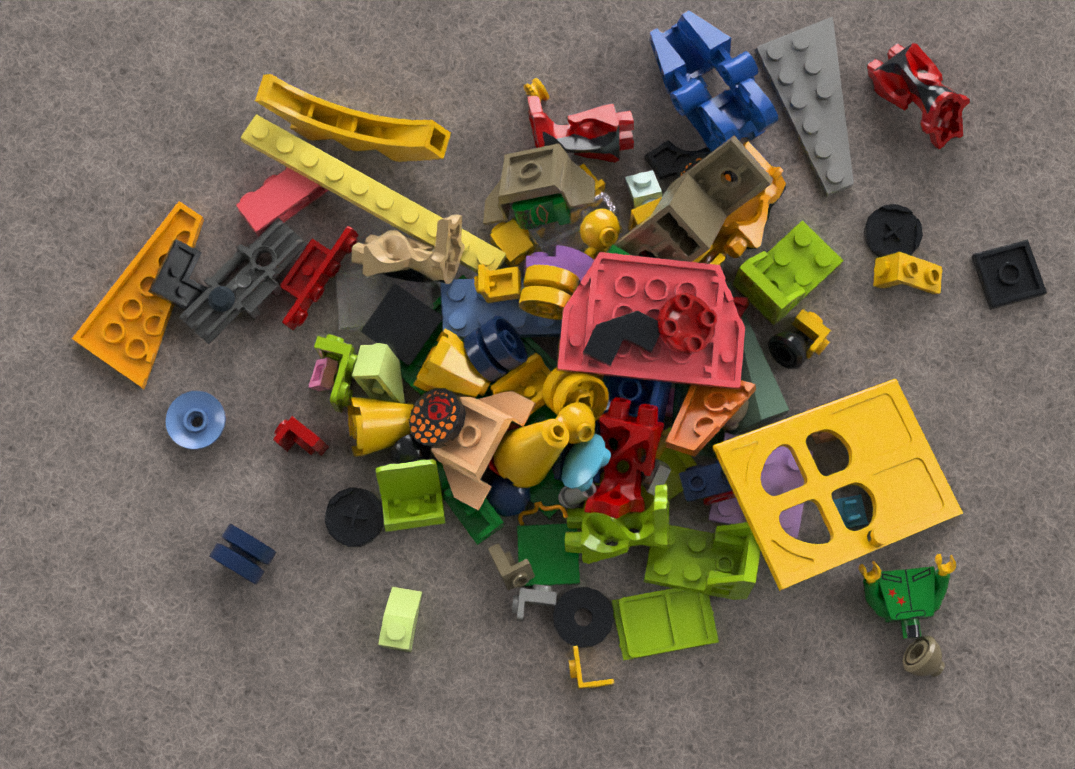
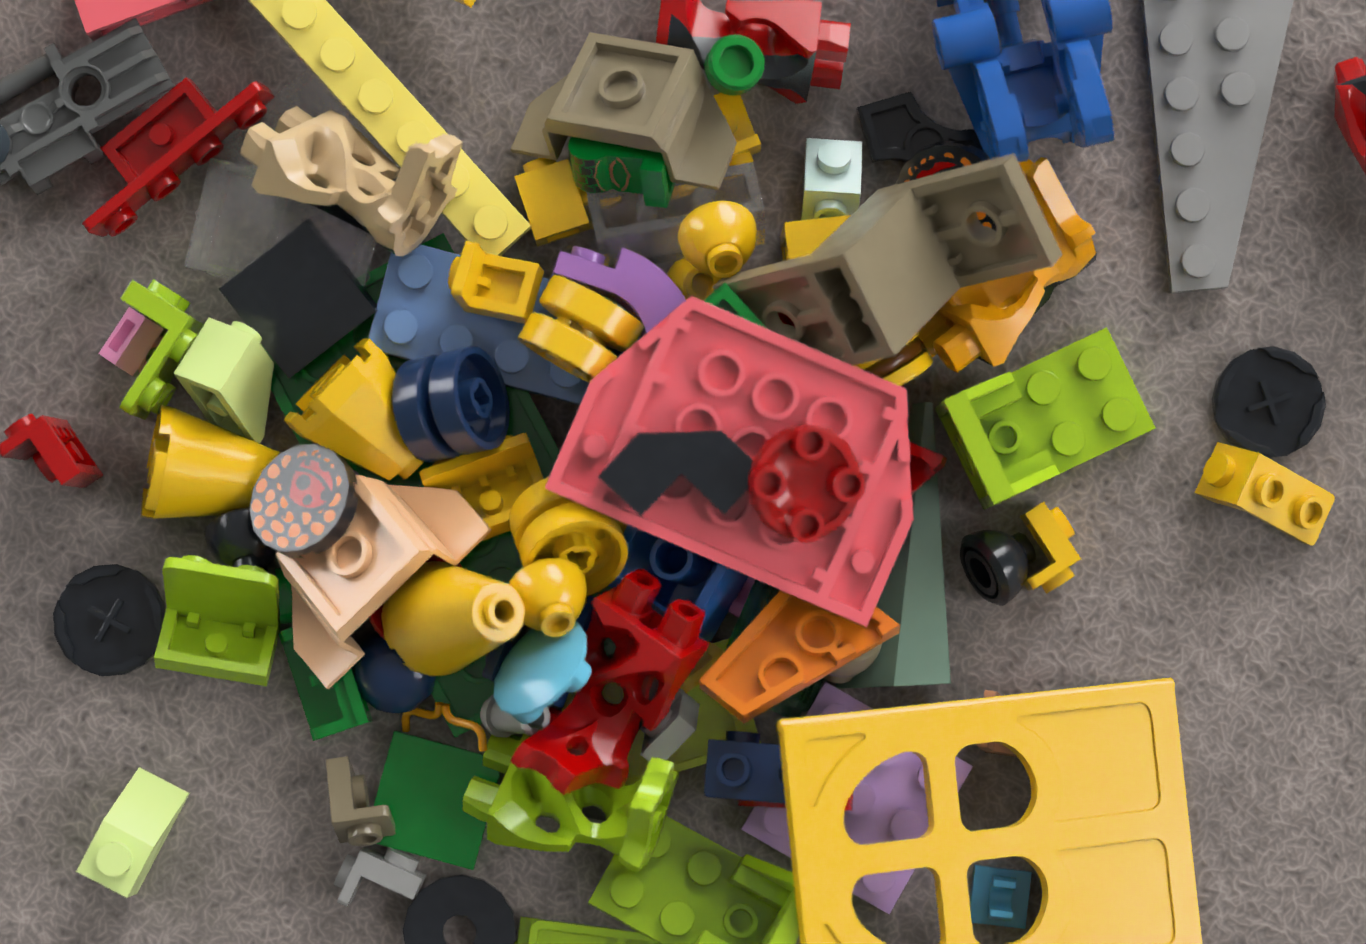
camera: 15 degrees right, 10 degrees up
(581, 144) = (734, 65): none -> green tile

